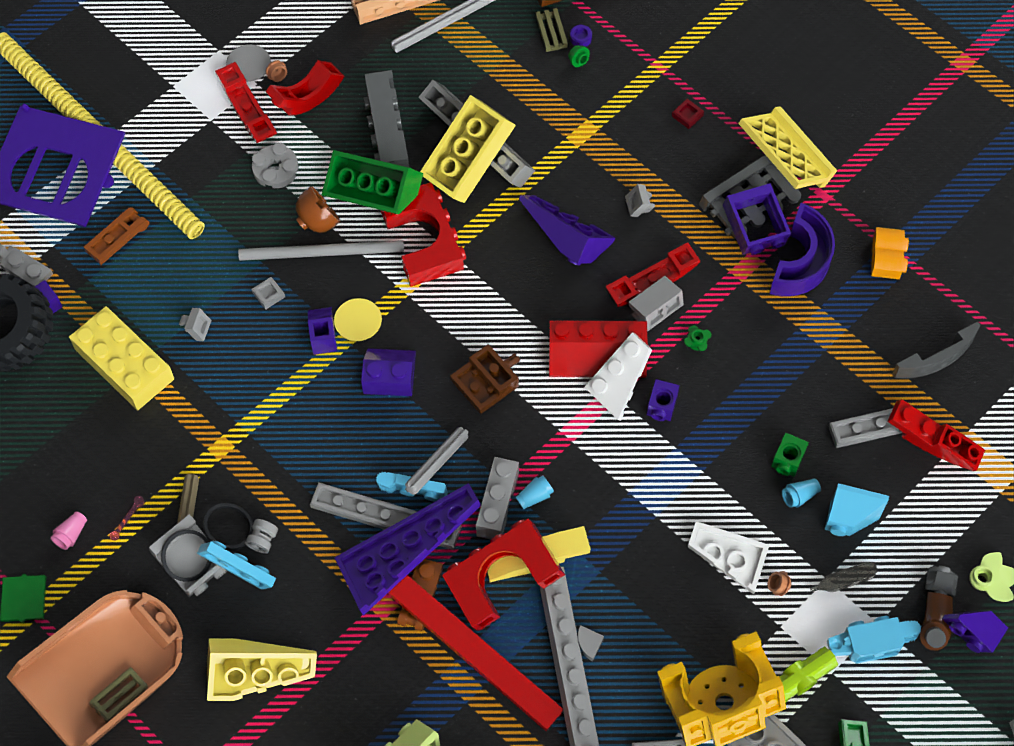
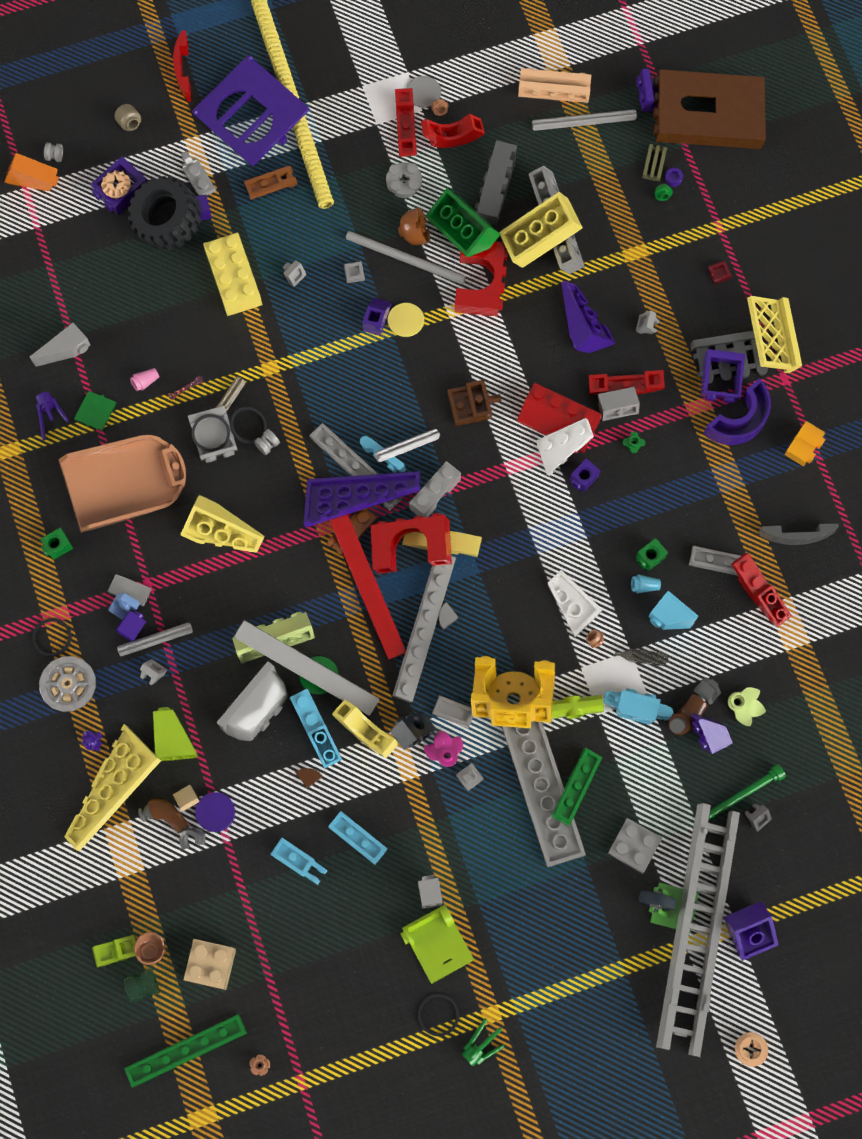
camera: 25 degrees right, 10 degrees up
(101, 710) = (131, 510): olive tile -> none
(236, 564) = (239, 454): medium azure plate -> none
(388, 372) = (407, 367): dark purple slope -> none
(535, 492) = (463, 498): medium azure cone -> none

